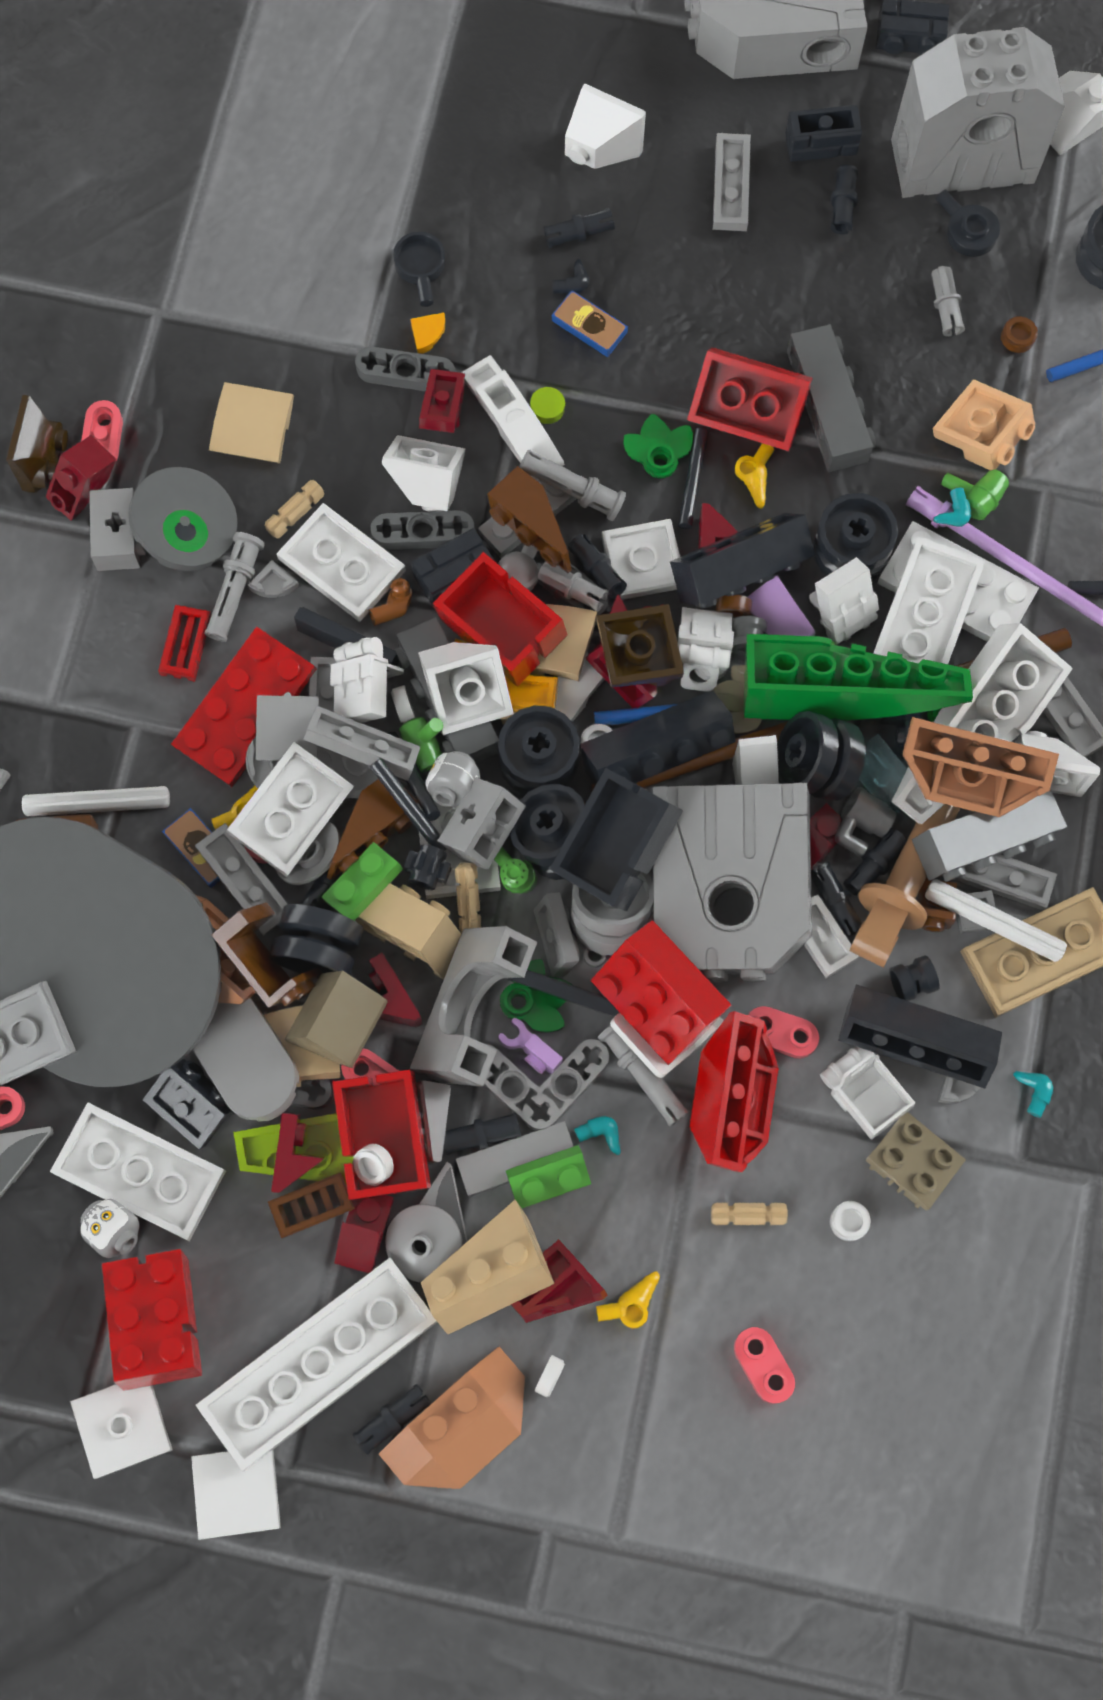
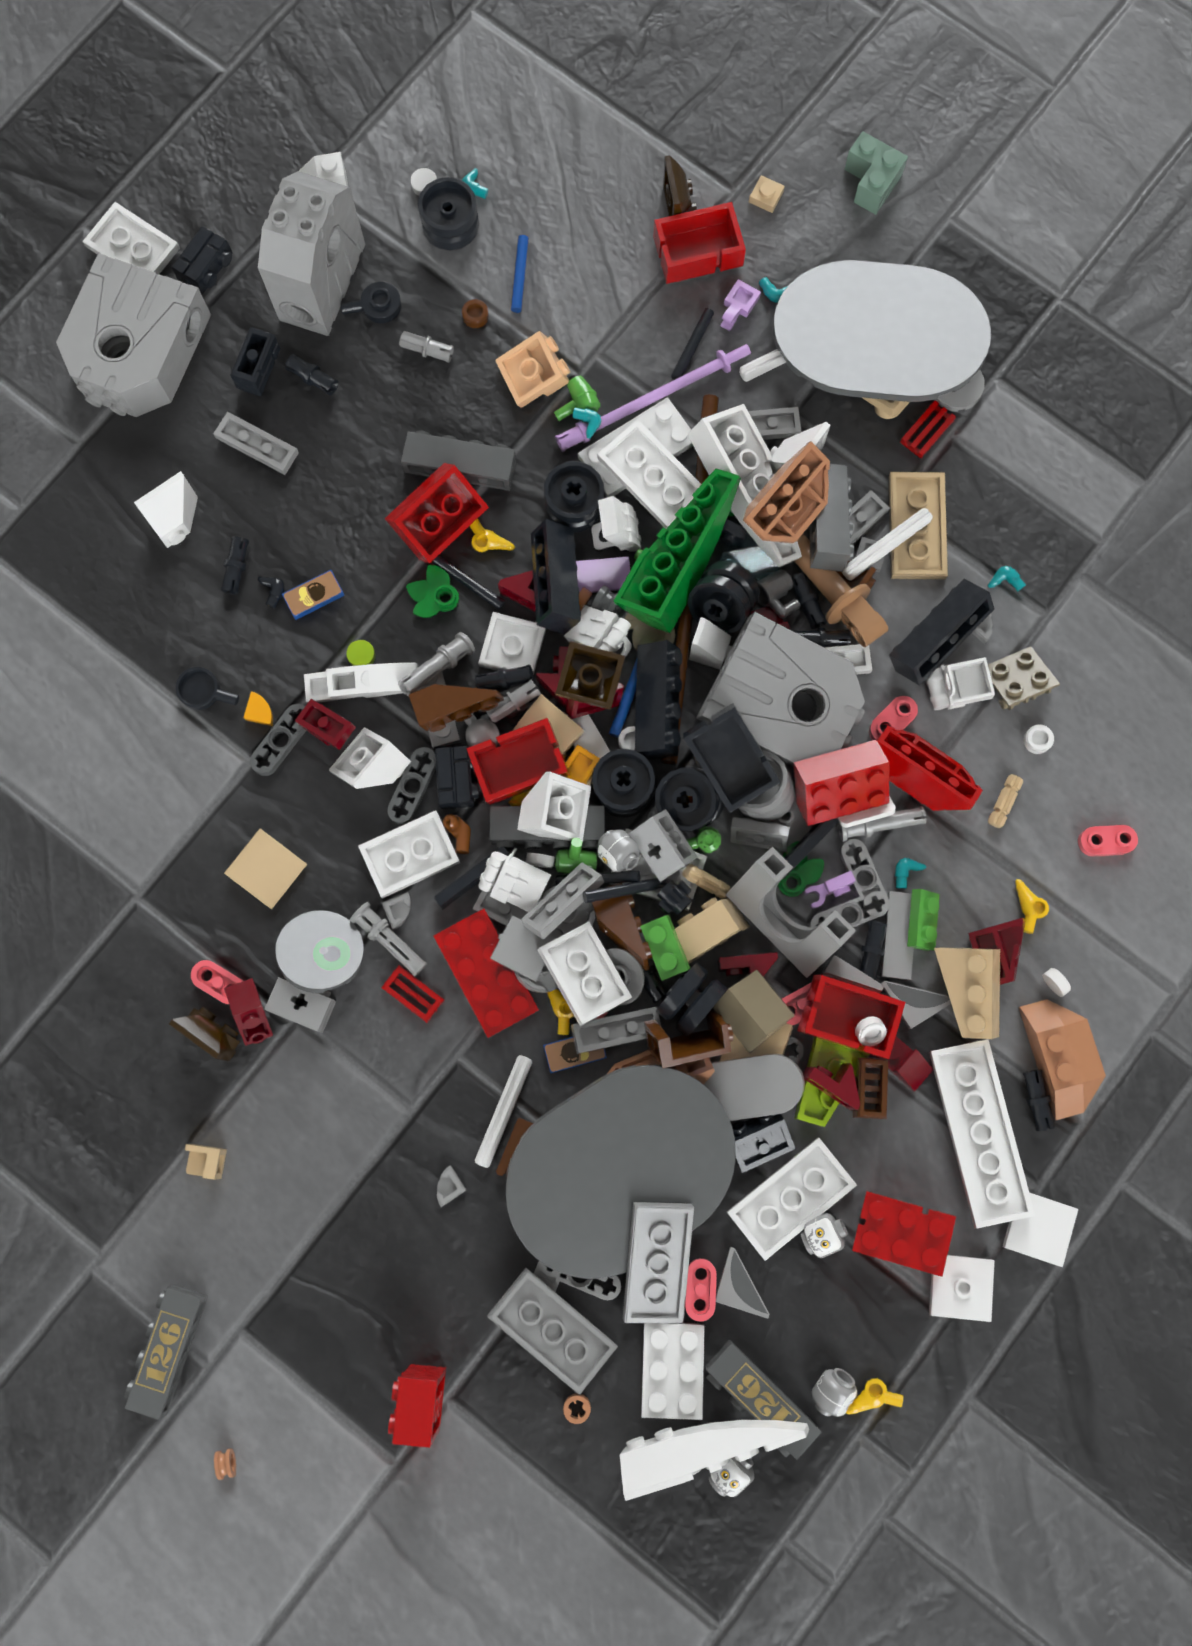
camera: 60 degrees left, 5 degrees up
(294, 509) = (349, 868): tan axle -> none
(426, 1224) = (918, 1022): light grey dish -> none
(914, 978) = (900, 616): black wheel -> none

